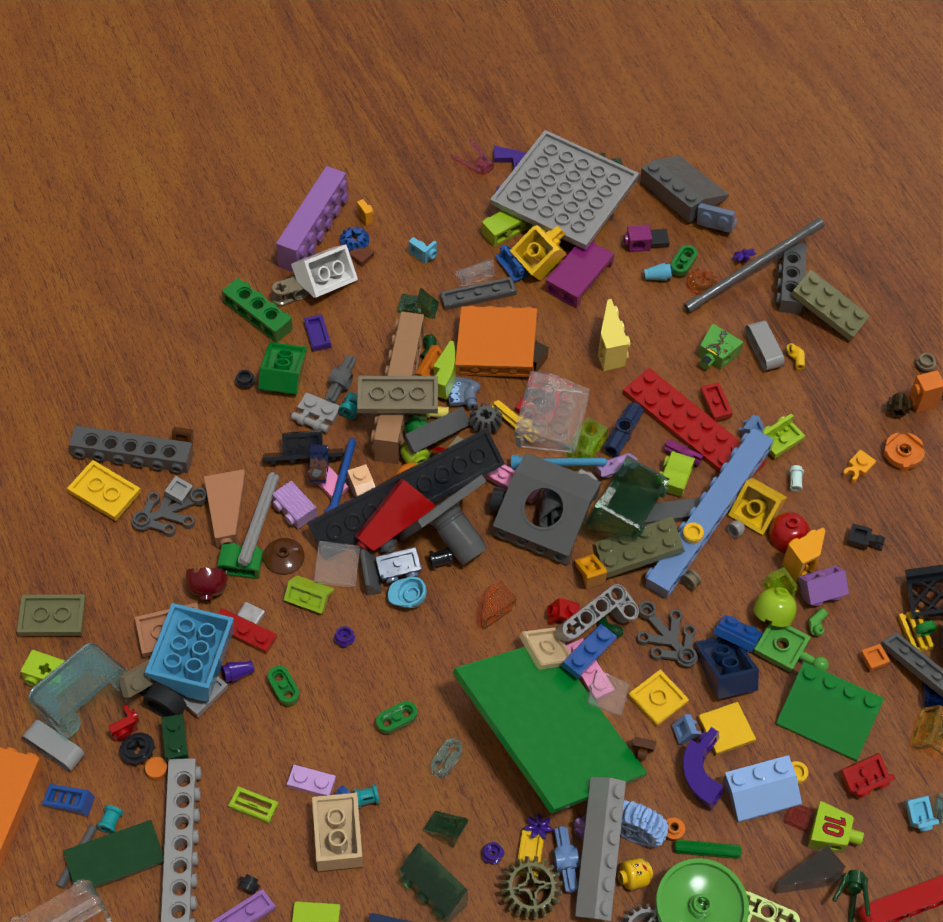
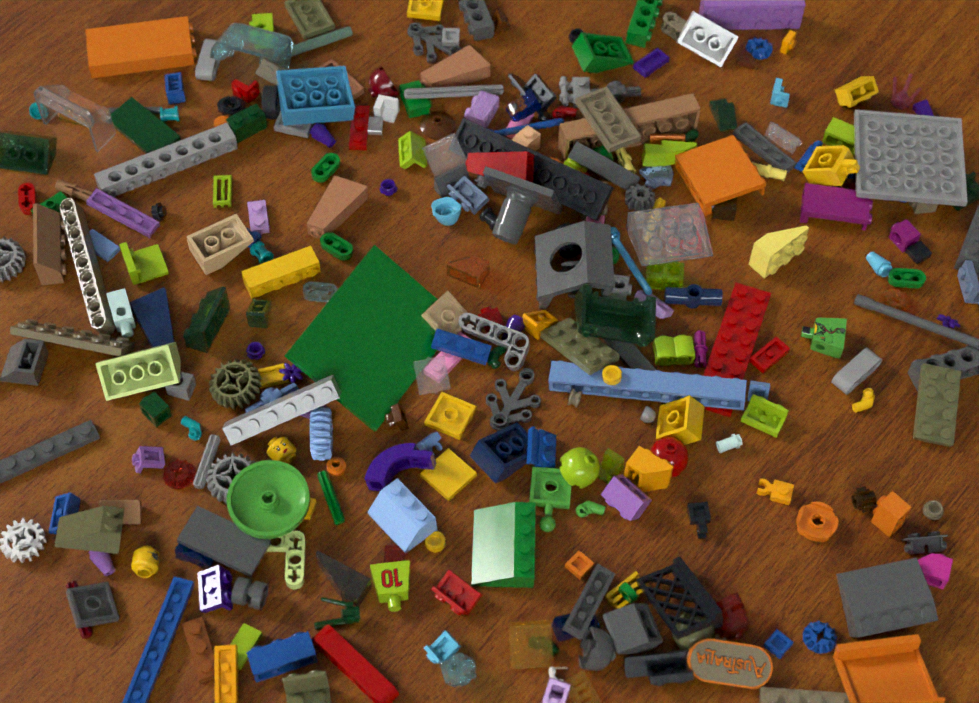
camera: 65 degrees right, 0 degrees up
(96, 612) = (321, 40): none -> sand green axle
(236, 594) = (387, 108): none -> white panel
(335, 434) = (563, 111): none -> red arm
(342, 695) = (336, 205): none -> nougat slope
(403, 786) = (281, 272): none -> yellow brick
(458, 189) = (856, 91): none -> yellow brick
(513, 299) = (769, 171): none -> light yellow pin
(583, 594) = (515, 323): none -> dark purple cone

